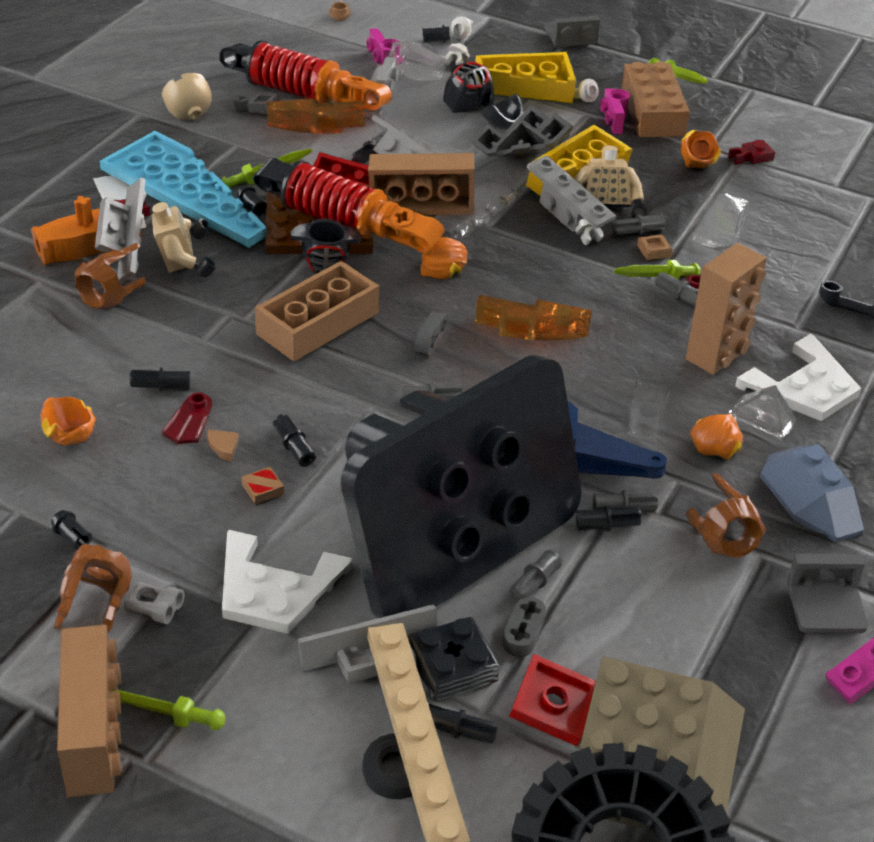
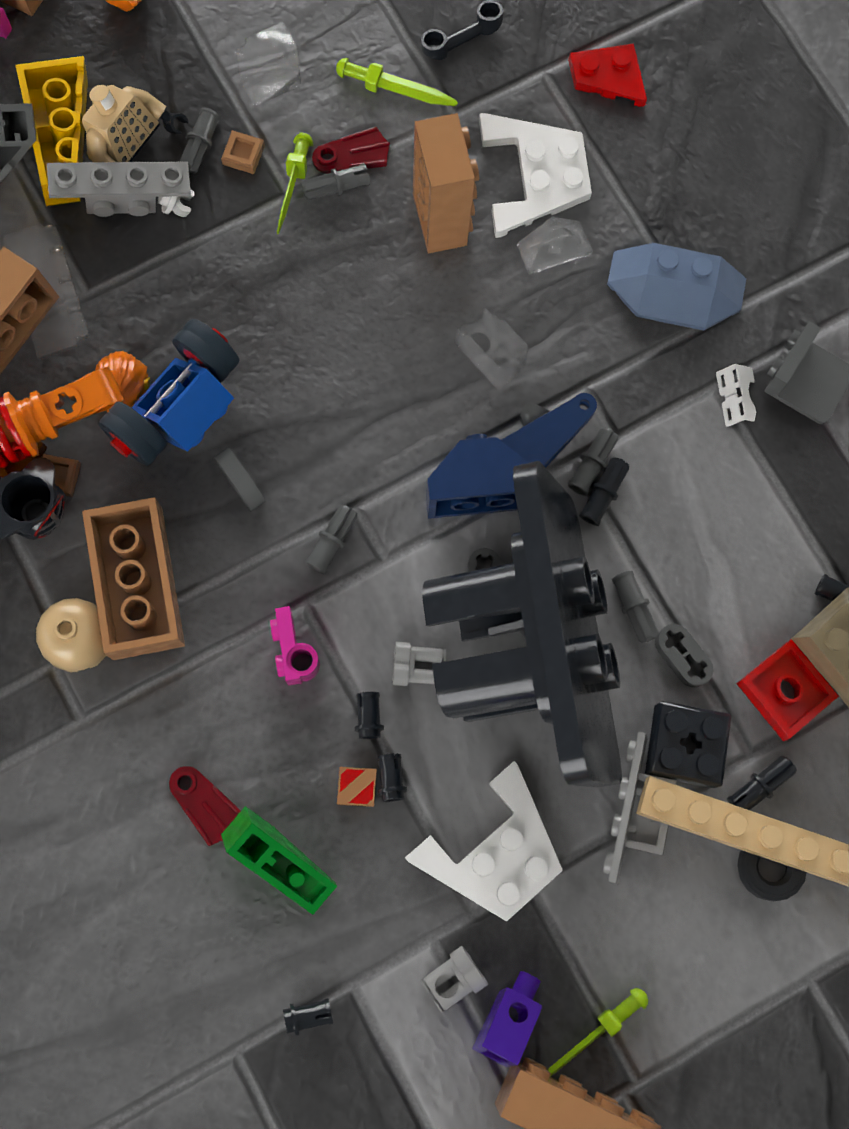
camera: 60 degrees left, 35 degrees up
(67, 420) = (145, 946): orange hair -> none
(98, 568) = (406, 1027): dark orange piece -> none
(142, 633) = (501, 1036): none -> dark purple torso
(160, 379) = (130, 805): black axle -> none
(176, 458) = (276, 860): none -> green slope
(223, 443) = (270, 793): medium nougat tile -> none
(246, 299) = (70, 635): none -> tan cylinder
(276, 500) = (391, 778): none -> black pin
(294, 440) = (313, 719): black axle -> none
(315, 468) = (368, 715): none -> black pin
(328, 409) = (284, 631): none -> dark pink plate
(361, 261) = (65, 473): none -> medium nougat tile
(453, 274) = (180, 400): none -> brick
(533, 322) = (295, 355): clear orange slope -> none
(717, 436) = (564, 314): orange hair -> none
(718, 518) = (709, 402): dark orange piece -> none
(762, 574) = (744, 377): none -> white piece
(776, 280) = (375, 77): none -> lime sword

